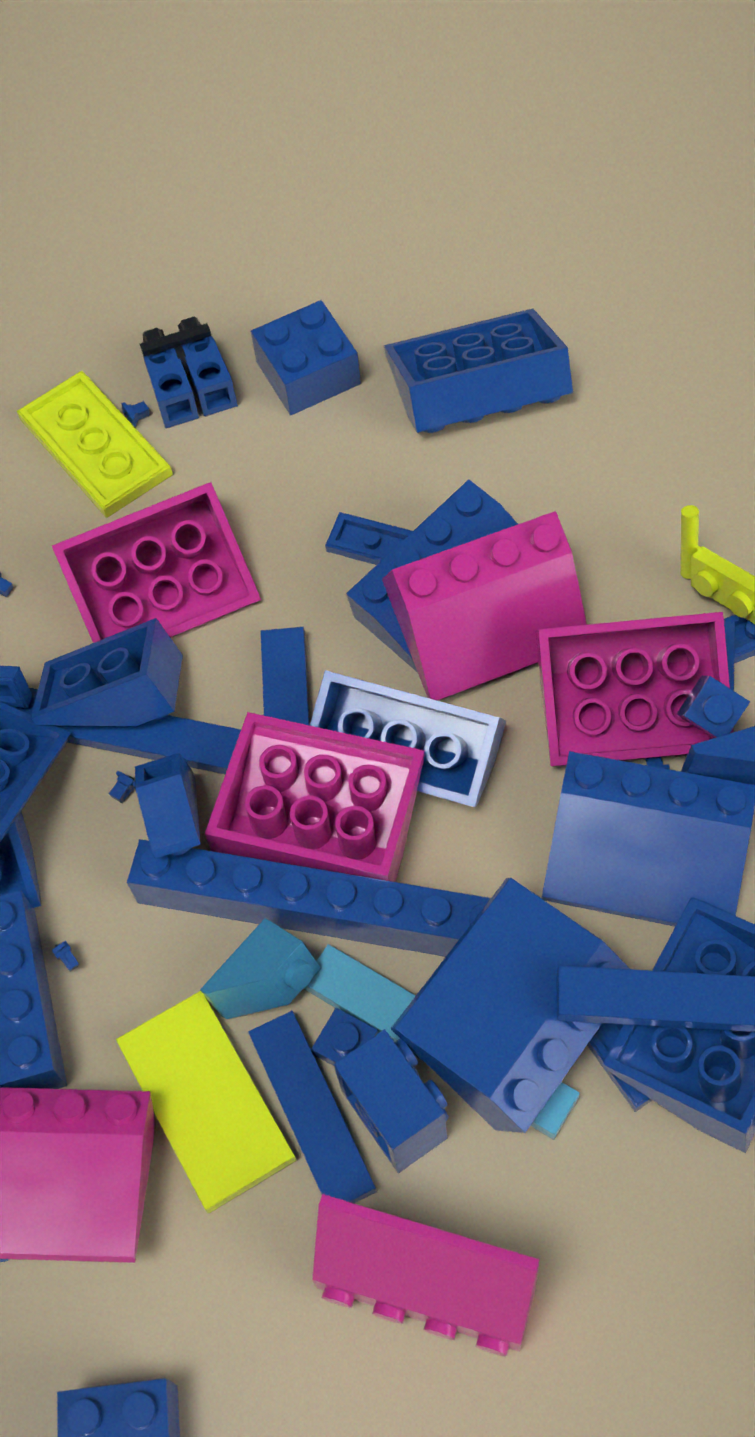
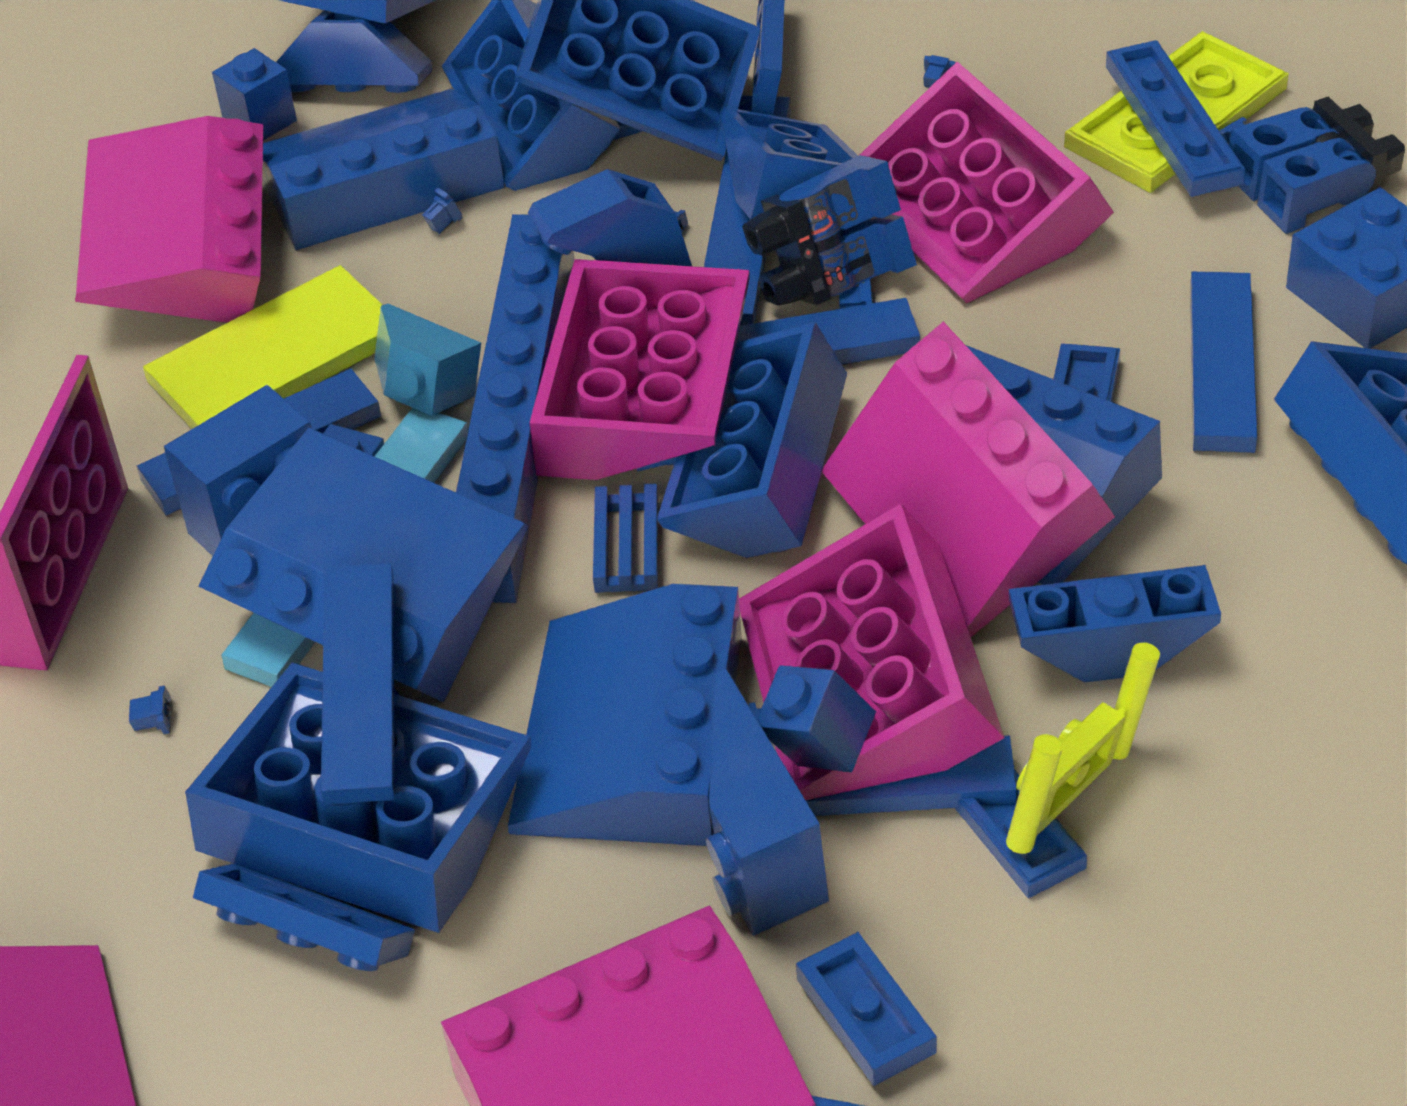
camera: 80 degrees right, 15 degrees down
(116, 439) = (1175, 118): none -> blue tile
(201, 656) = (831, 233): none -> hips
(245, 665) = (857, 296): none -> blue piece
(361, 458) = (1222, 362): none -> blue tile
(467, 823) = (625, 504): none -> blue tile
(597, 1194) = (151, 711): none -> blue piece
(609, 539) = (1097, 621): none -> blue slope

